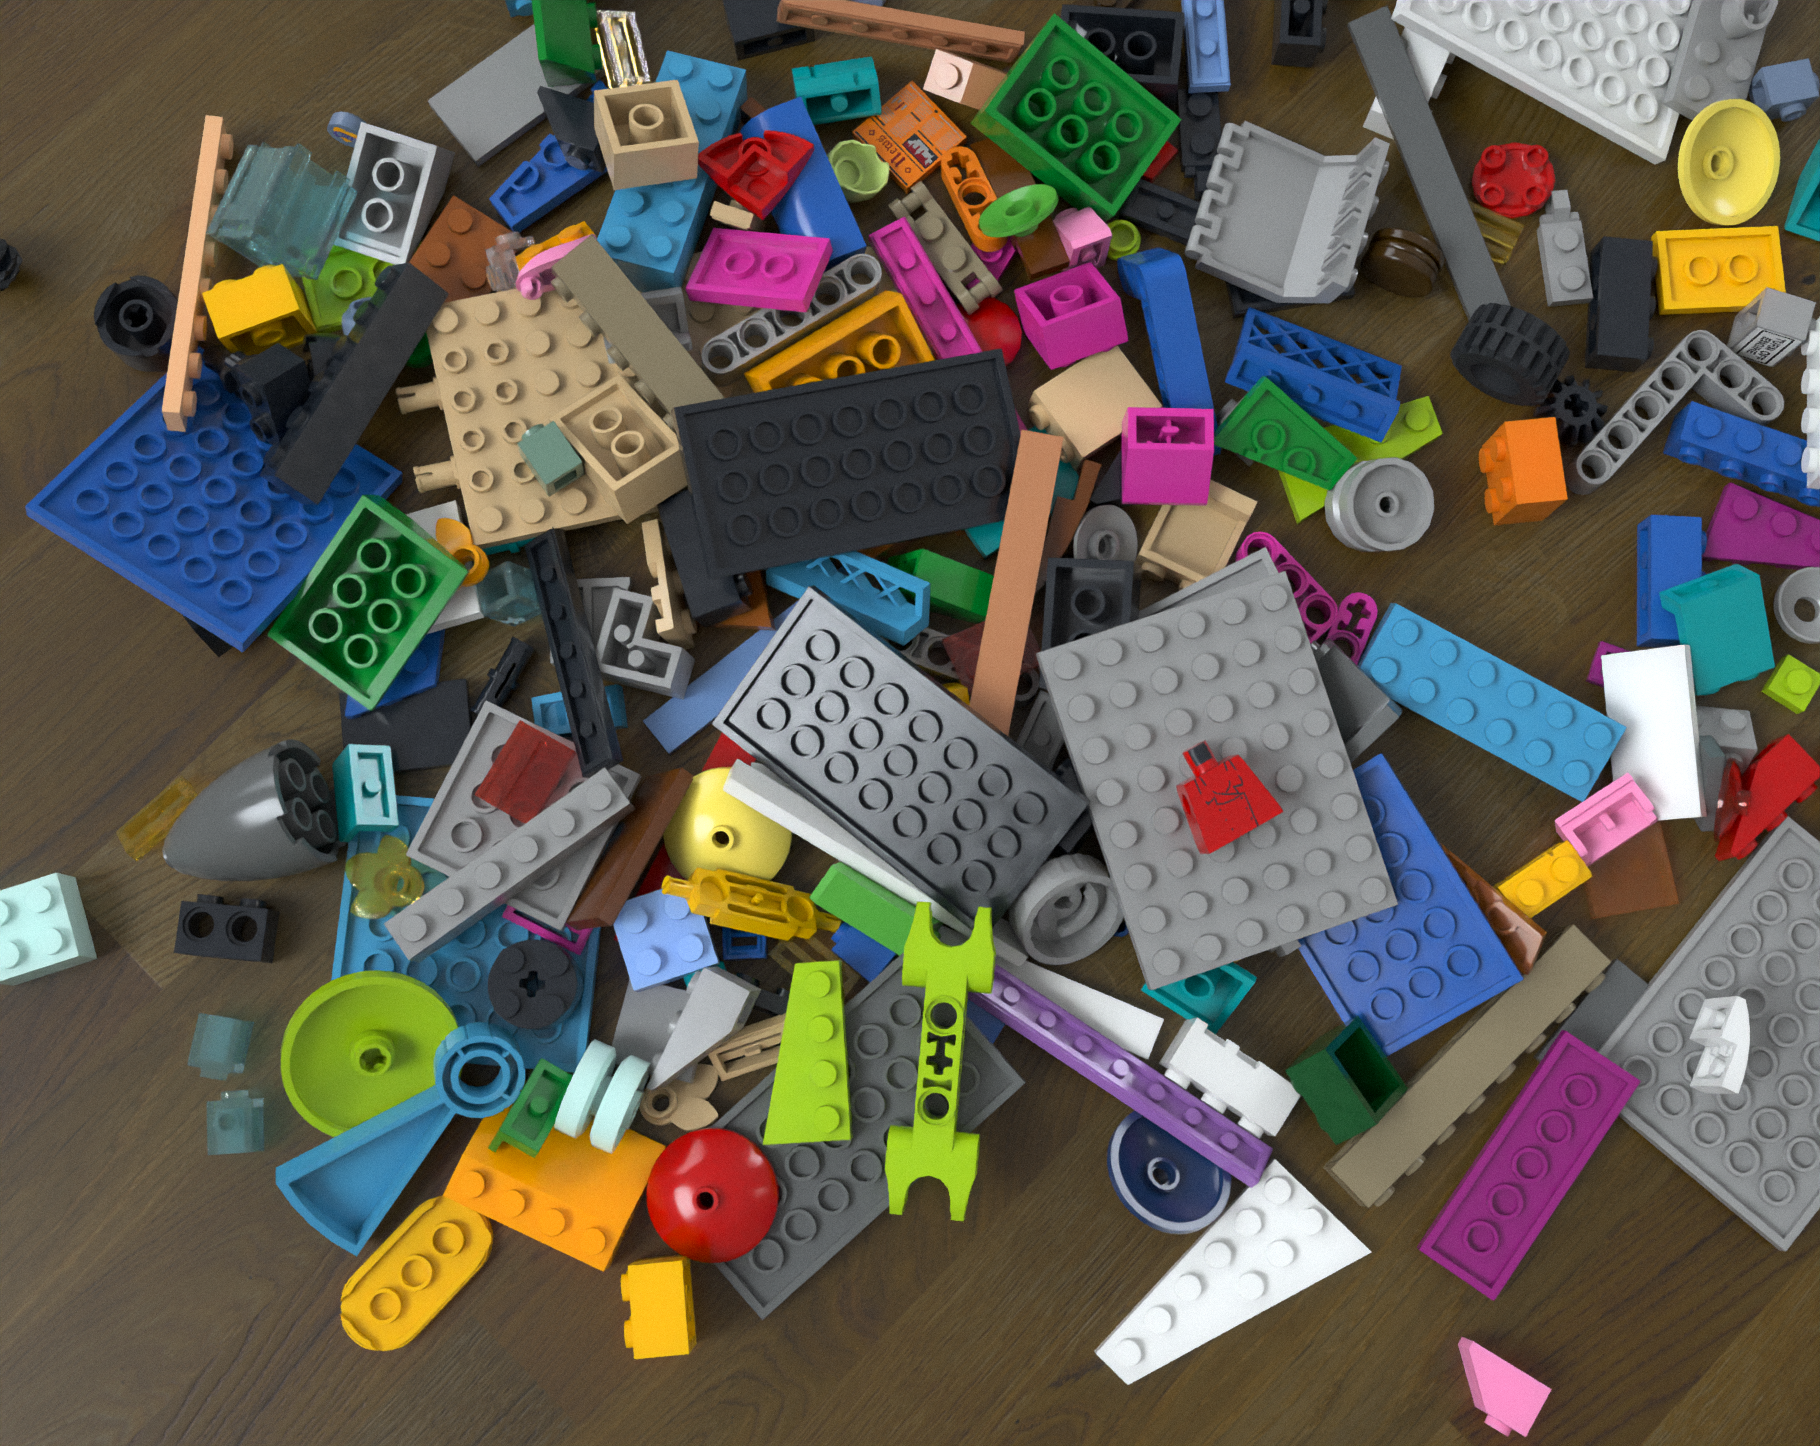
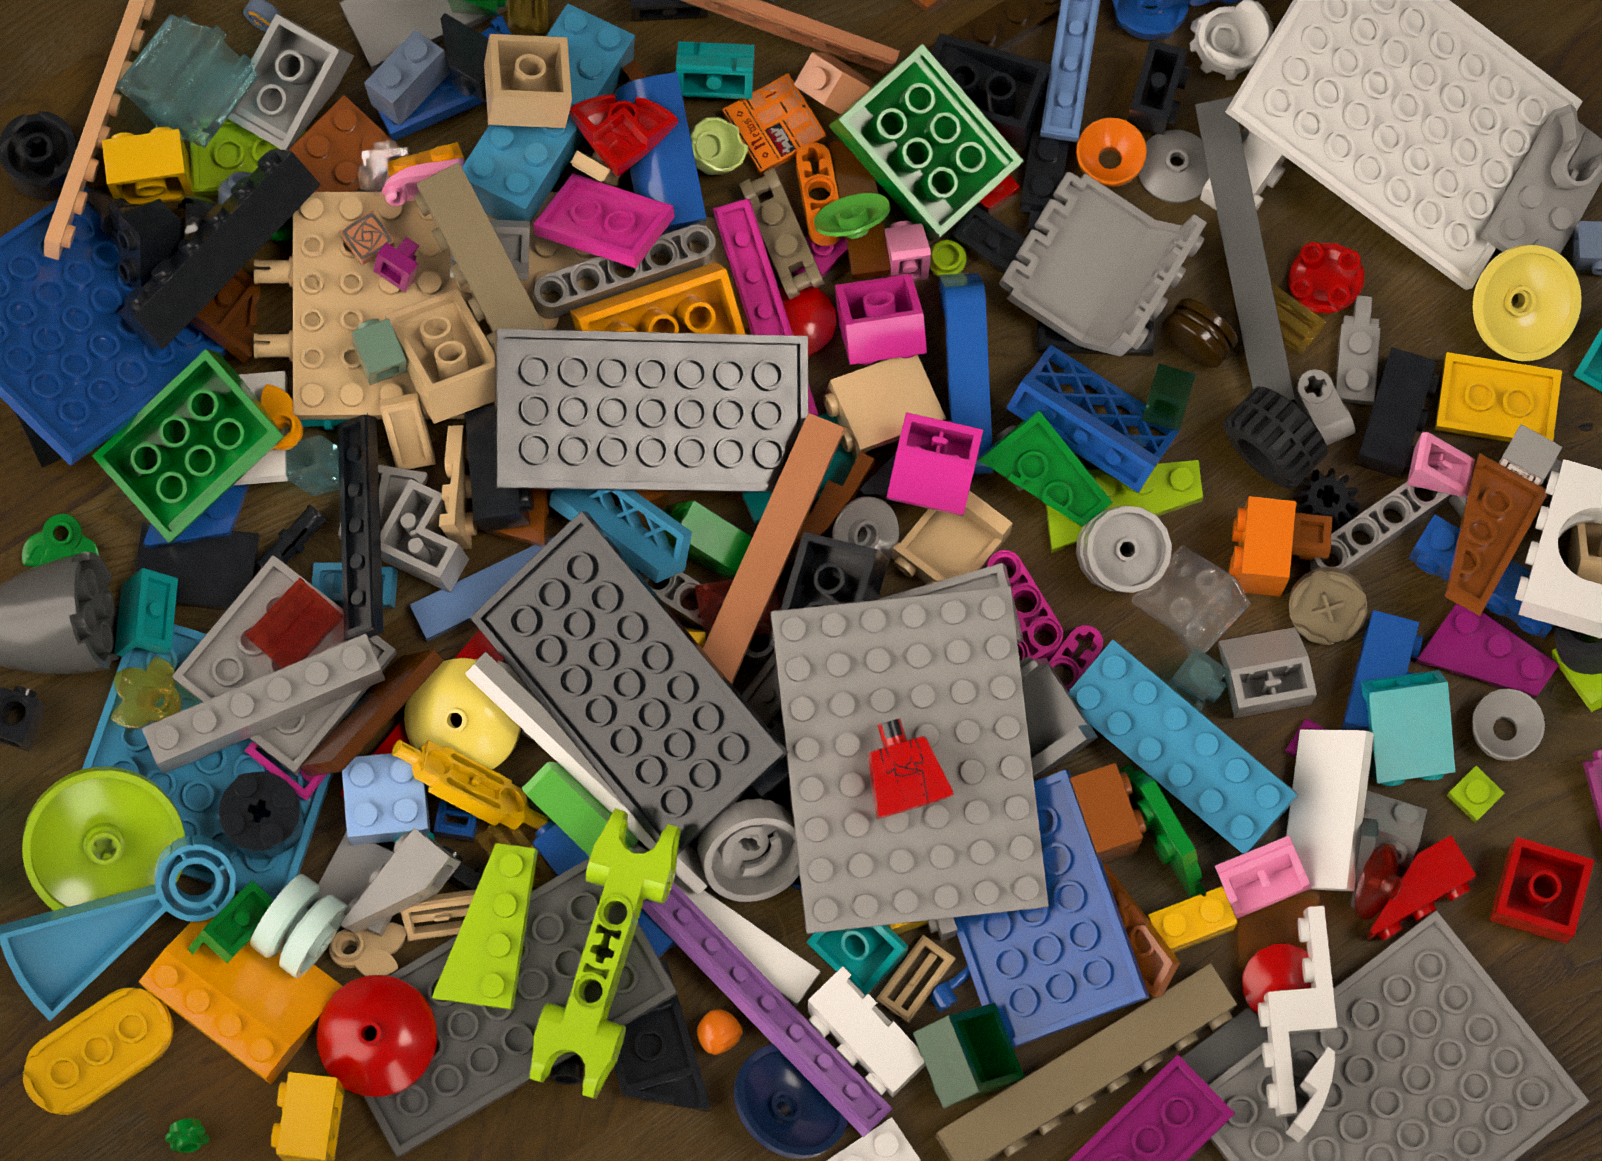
camera: 15 degrees right, 5 degrees down
(242, 741) = (46, 547): none -> green plate
(385, 452) = (232, 315): none -> reddish brown wing
(511, 340) = (366, 237): none -> tile
(515, 162) = (407, 77): none -> sand blue brick
(532, 1346) = (187, 1135): none -> green plate
(550, 360) = (398, 263): none -> magenta tile
(599, 537) = (407, 431): none -> tan tile
(925, 1187) = (568, 1072): none -> black hinge
(1020, 1152) = (660, 1060): none -> black wing
(1073, 1108) = (718, 1031): none -> orange piece
(1268, 78) = (1116, 136): none -> orange piece
(1280, 1010) = (896, 1007): none -> tan tile
(1297, 1015) = (943, 995): none -> blue hand
(1327, 113) = (1171, 182): none -> light grey dish
(1385, 336) = (1168, 397): none -> clear green brick
(1435, 785) = (1108, 813): none -> dark orange brick
(1461, 544) = (1194, 600): none -> clear bracket
(1487, 623) = (1200, 679): none -> clear light blue brick
(1489, 787) = (1171, 840): none -> green wing
(1547, 307) = (1325, 410): none -> light grey piece
(1554, 601) = (1267, 672): none -> light grey slope
(1577, 450) = (1312, 536): none -> dark orange tile
(1600, 519) = (1327, 605): none -> dark tan tile
(1646, 926) = (1271, 970): none -> red dish
(1680, 957) = (1298, 1011): none -> white bracket
(1685, 350) = (1440, 467): none -> bright pink slope
(1761, 407) = (1491, 529): none -> dark orange wing

